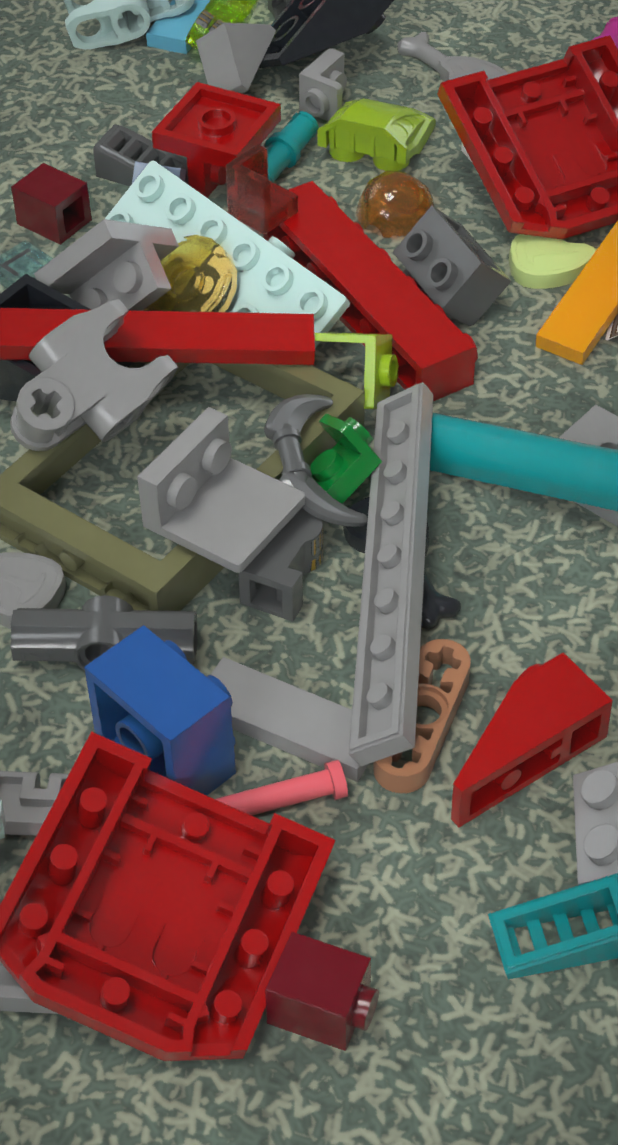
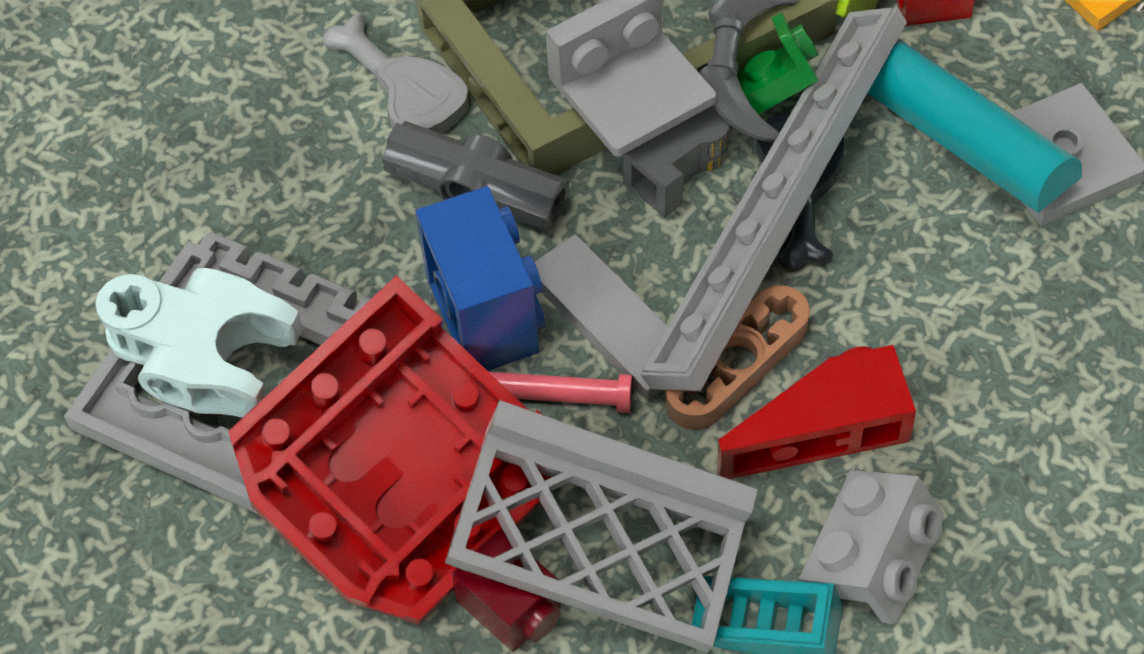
camera: 25 degrees right, 10 degrees up
(371, 843) = (604, 470): none -> light grey fence

